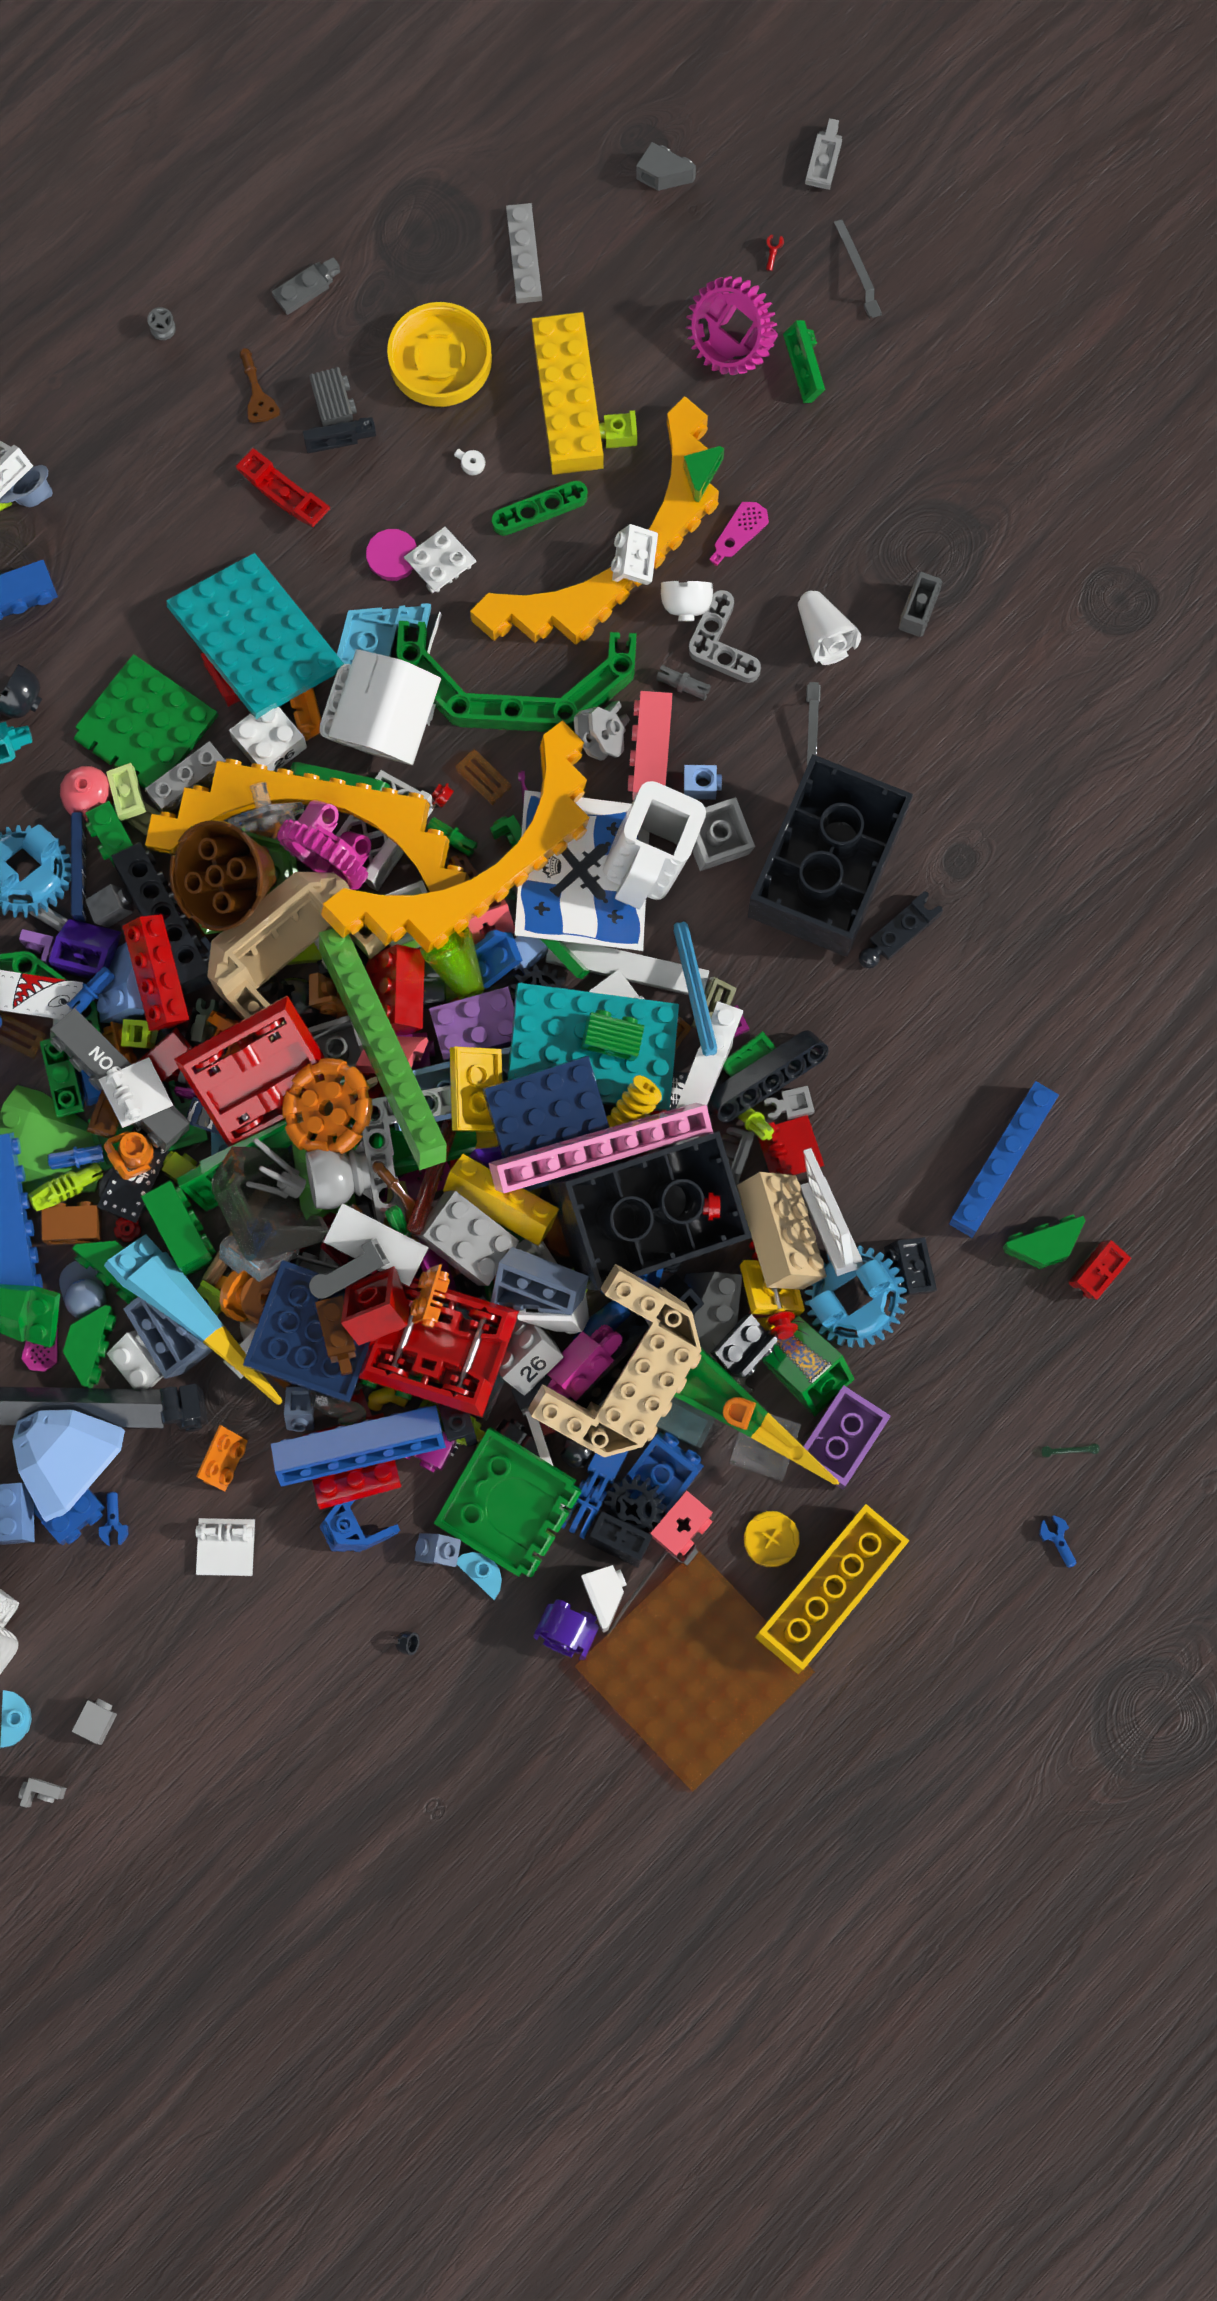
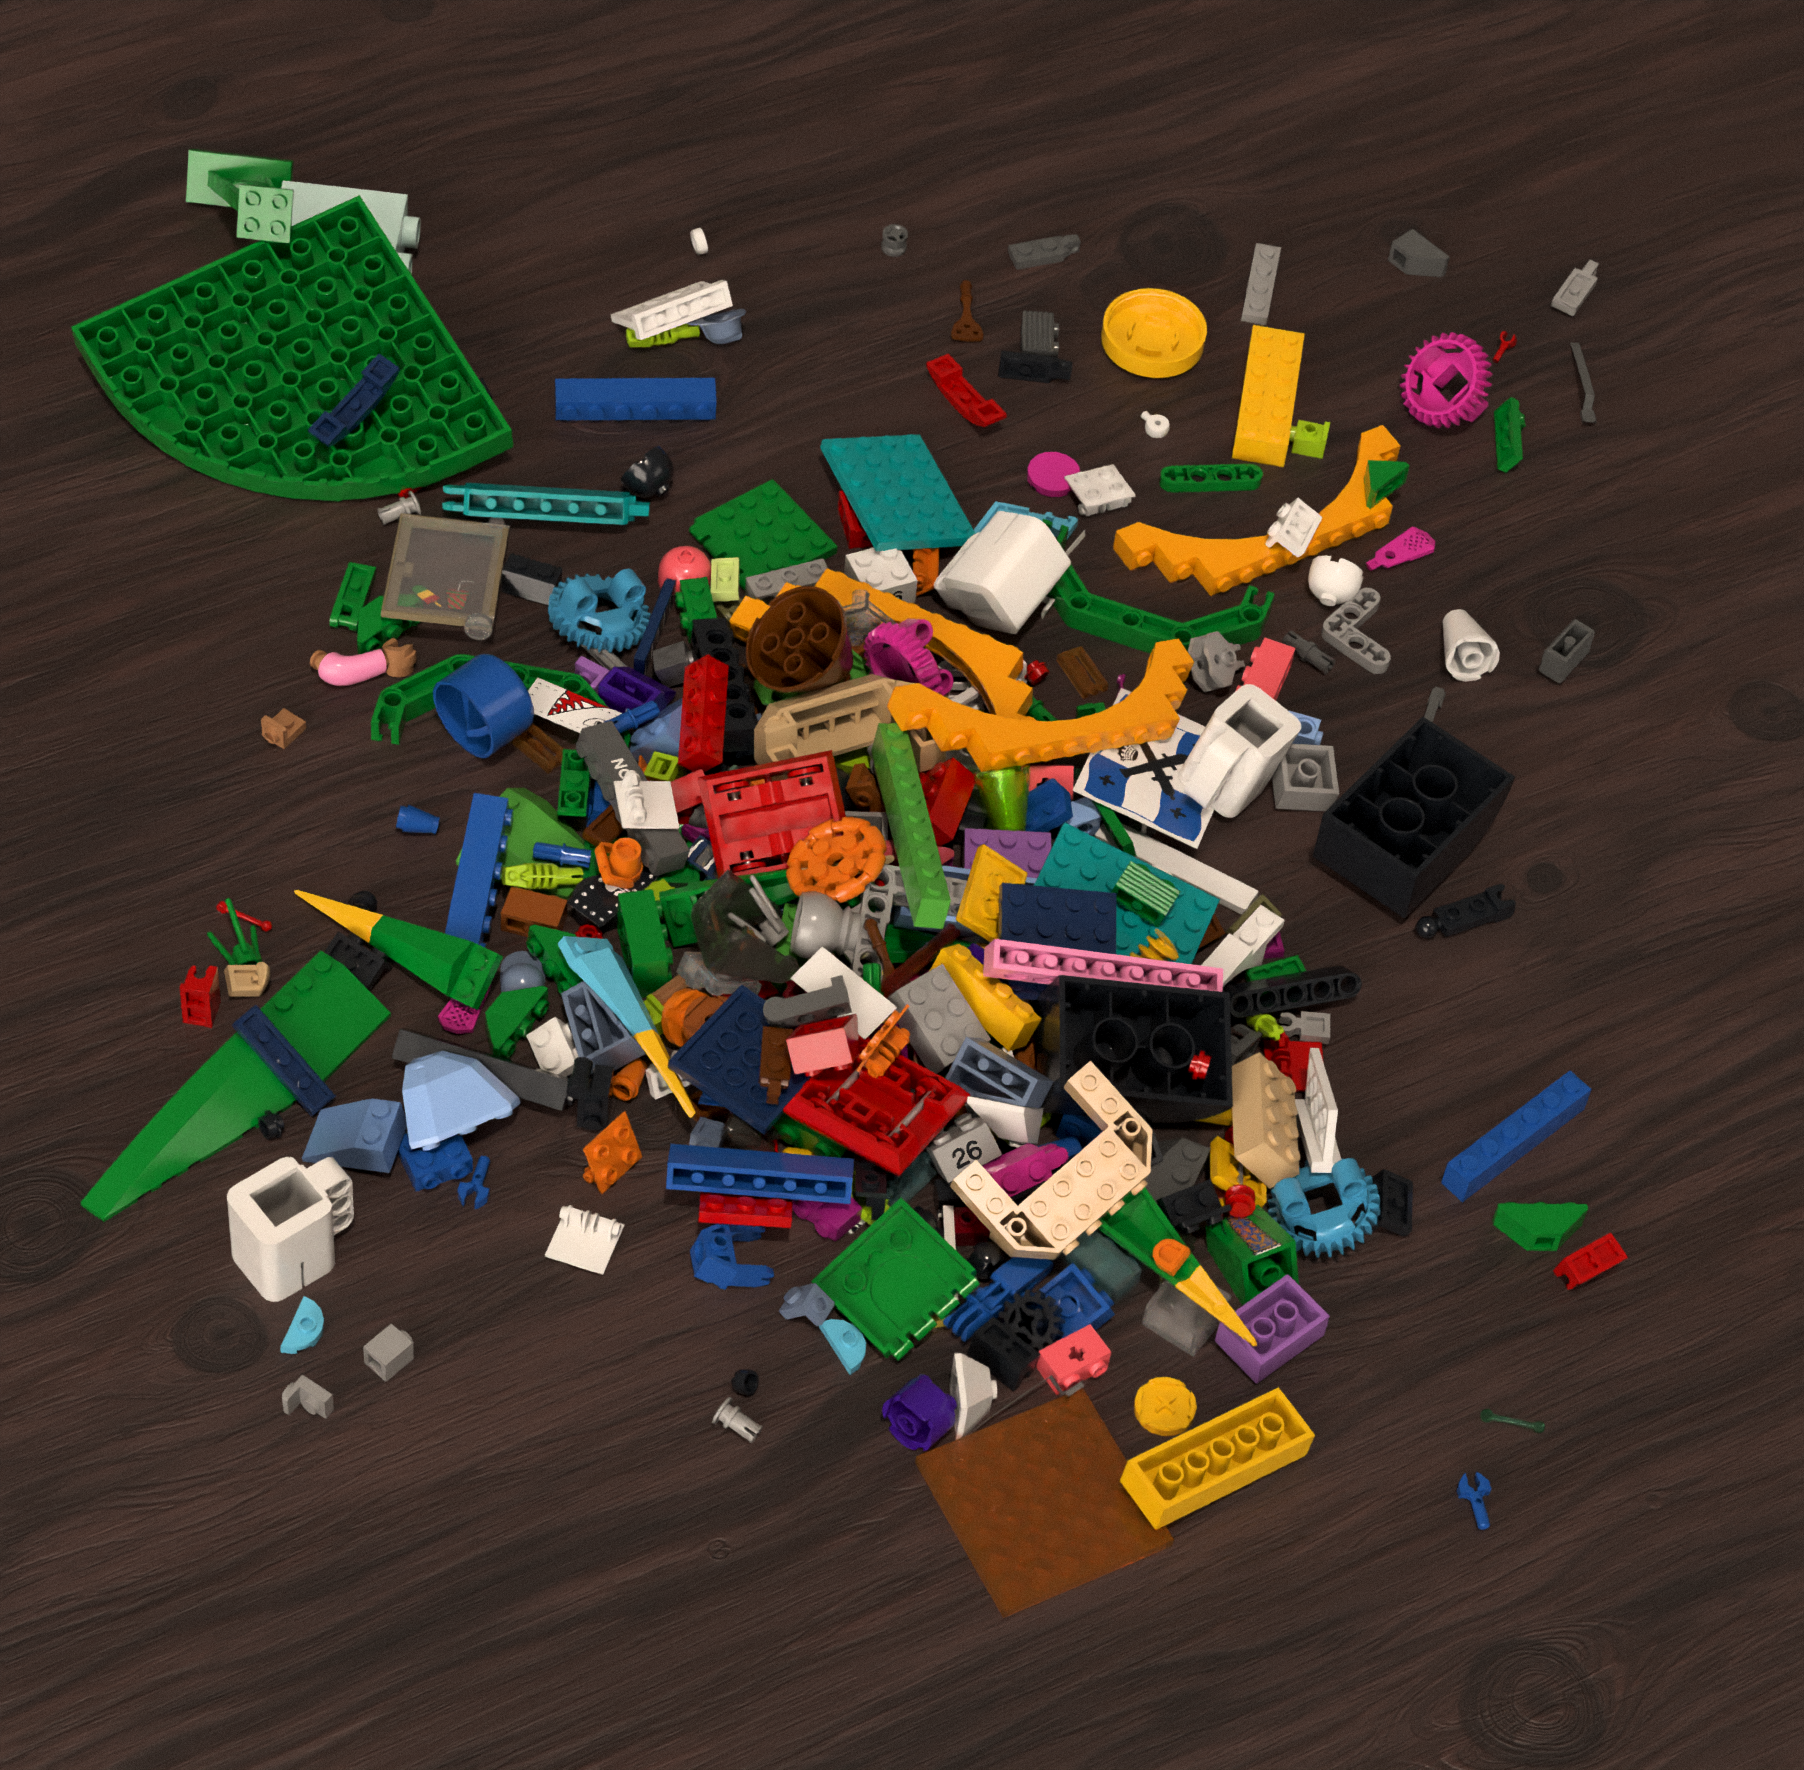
camera: 10 degrees right, 25 degrees down
(211, 1372) = (629, 1080): none -> orange cone
(412, 1684) = (736, 1420): none -> light grey pin
(695, 989) = (1240, 892): dark azure axle -> none

